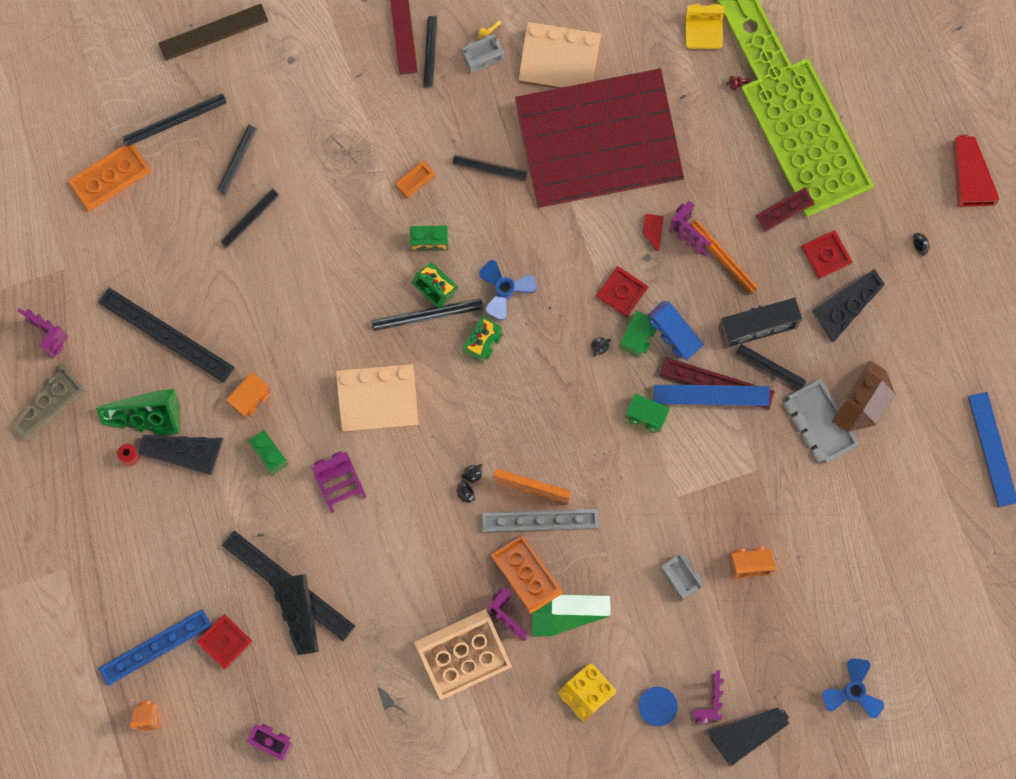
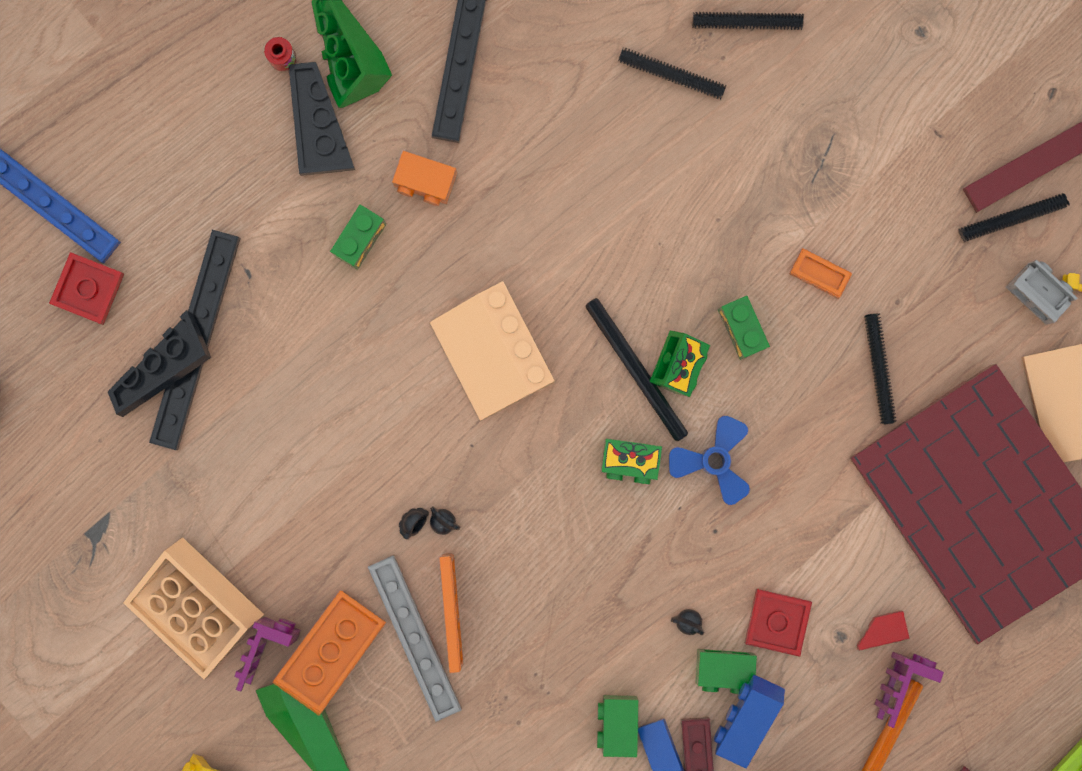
camera: 65 degrees right, 10 degrees up
(332, 469) = (377, 338): magenta plate -> none

